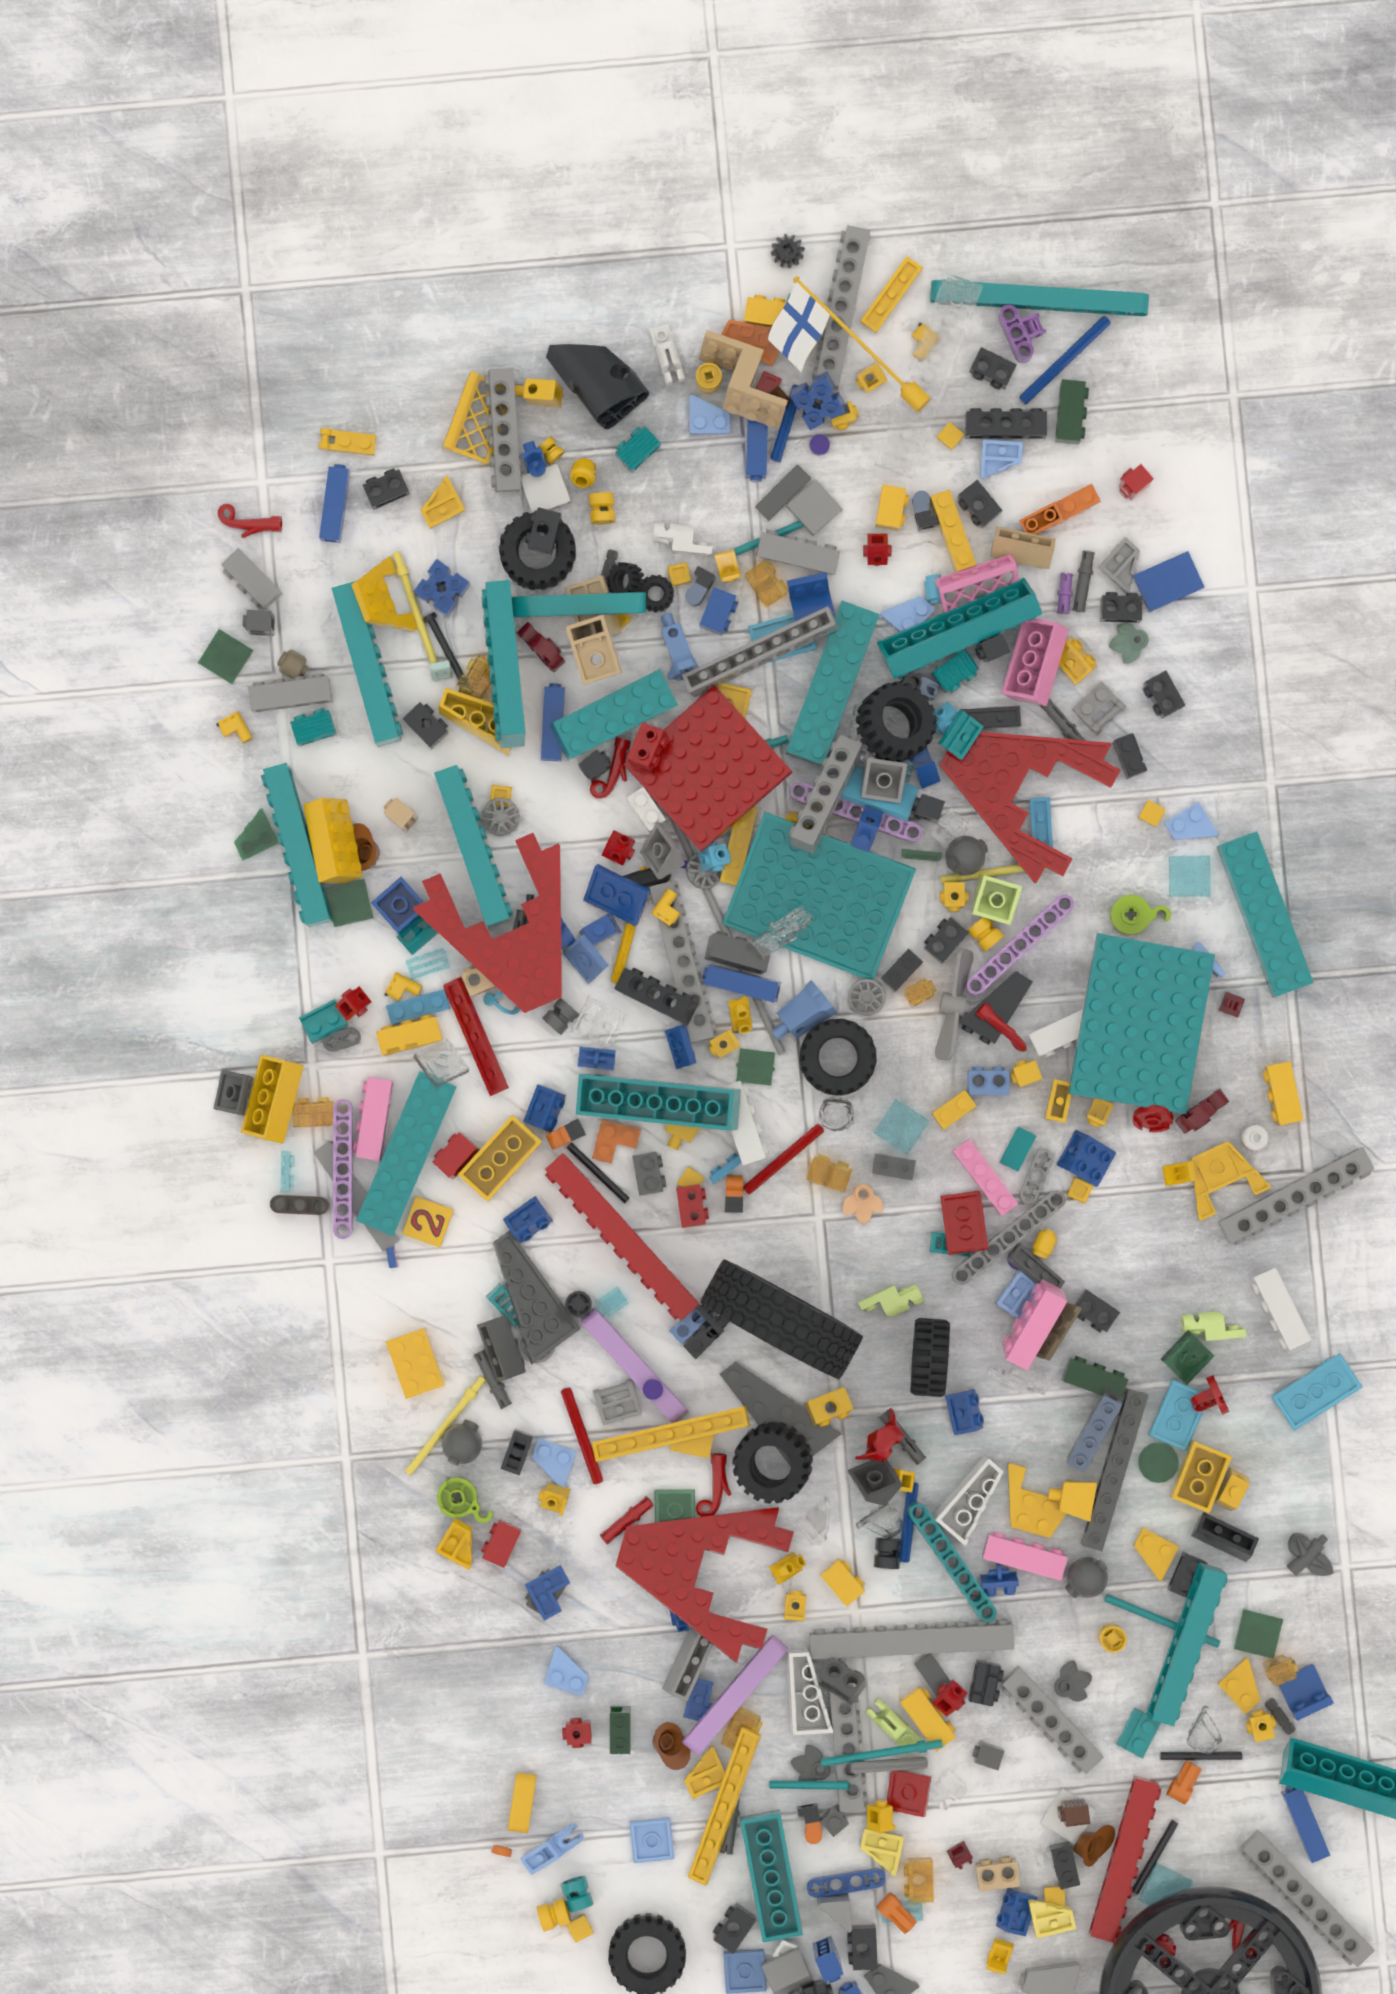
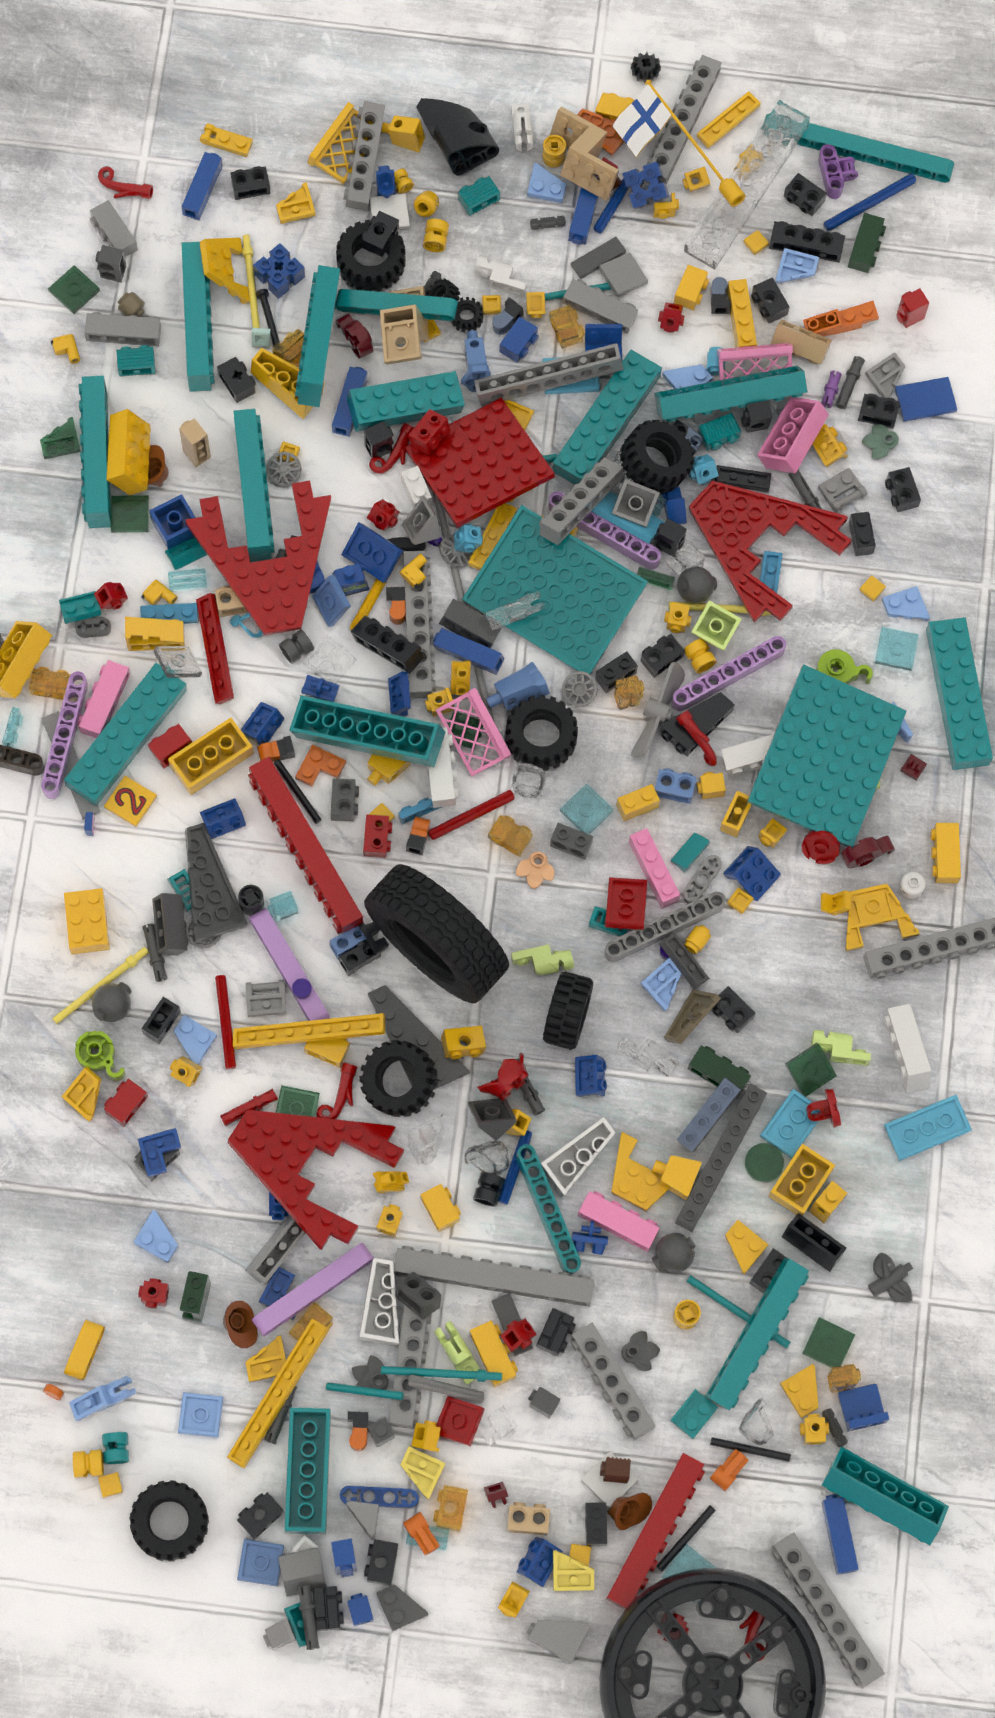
camera: 10 degrees right, 15 degrees down
(658, 952) = (398, 609): none -> leg
(718, 463) = (547, 222): none -> dark grey axle
(781, 1060) = (488, 724): none -> bright pink fence
(819, 445) = (639, 226): dark purple tile -> none
(866, 831) = (611, 539): blue torso -> none
(960, 734) = (713, 481): teal plate -> none
(1034, 1324) = (675, 1001): bright pink brick -> none

